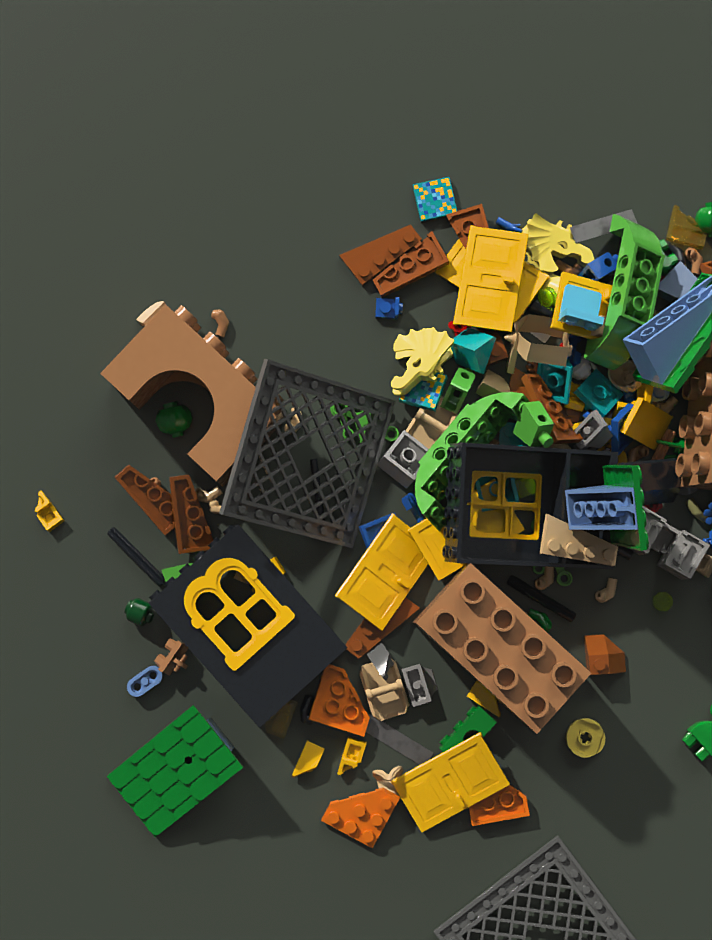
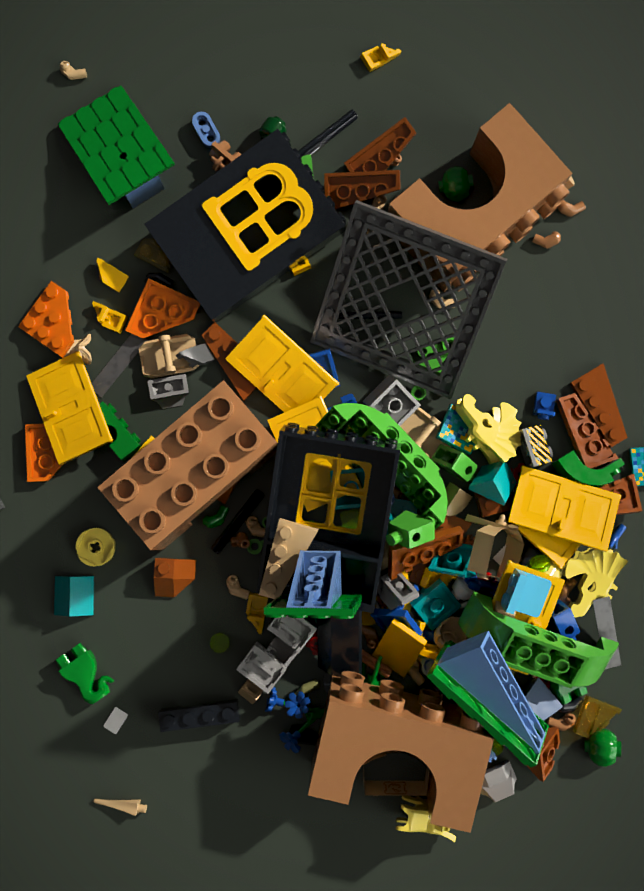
camera: 95 degrees right, 0 degrees up
(99, 829) = (70, 72): none -> tan arm
(187, 301) = (571, 210): none -> medium nougat arm
(432, 313) = (534, 446): none -> slope
(450, 274) = (573, 469): none -> green arch
(560, 592) = (240, 541): none -> medium nougat arm
(627, 568) = (255, 610): none -> yellow slope
(636, 753) = (74, 595): none -> teal slope

